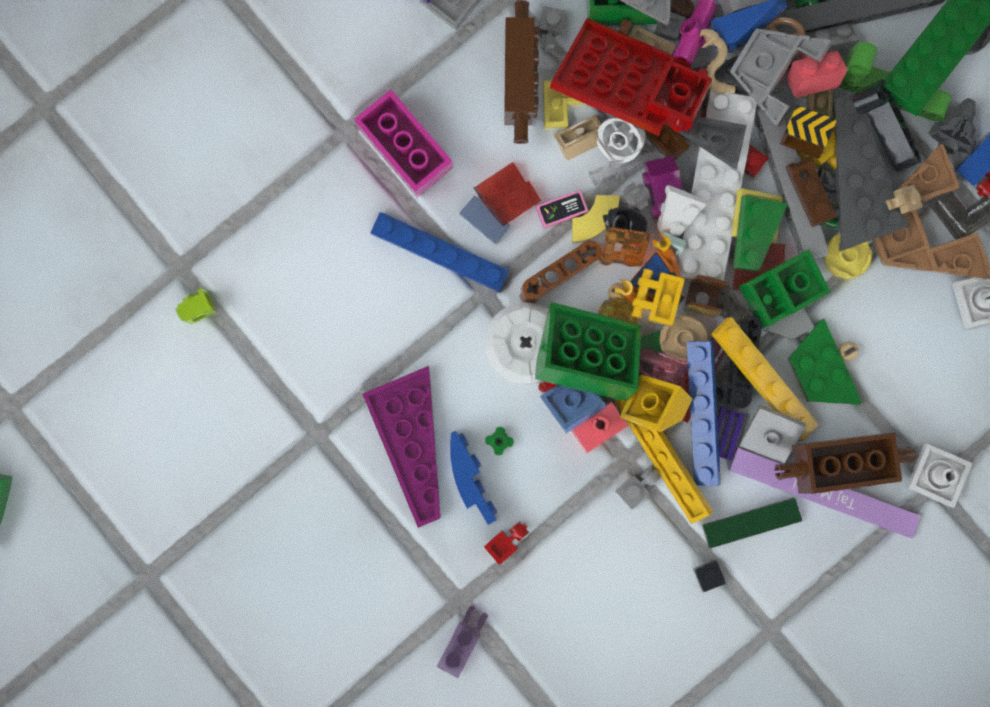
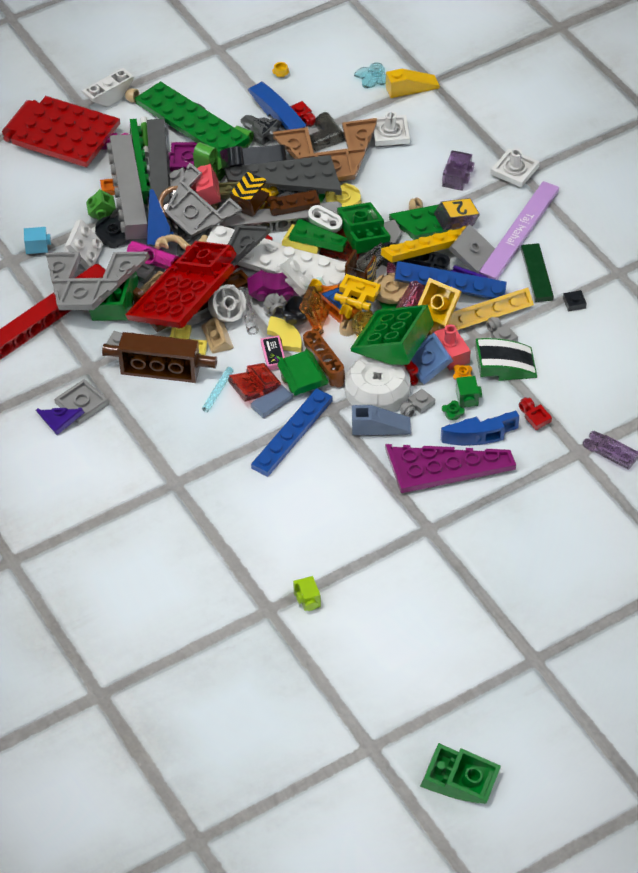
camera: 80 degrees left, 35 degrees down
(404, 143) = (199, 437): dark pink brick -> none
(461, 355) = (378, 421): none -> sand blue slope
(493, 152) = (218, 388): none -> clear light blue bar
(509, 399) = (419, 401): none -> light grey plate
(526, 250) = (302, 372): none -> green slope
(527, 457) = (468, 391): none -> green brick
(556, 450) = (462, 371): none -> light orange plate
(589, 497) = (504, 359): none -> slope
(787, 237) = (326, 218): none -> white plate
(829, 407) = (456, 213): none -> brick
(846, 463) = (499, 209): reddish brown brick -> none
(890, 38) = (181, 155): none -> magenta plate
(905, 199) = (311, 151): tan plate -> none
(934, 399) = (457, 170): none -> clear purple brick

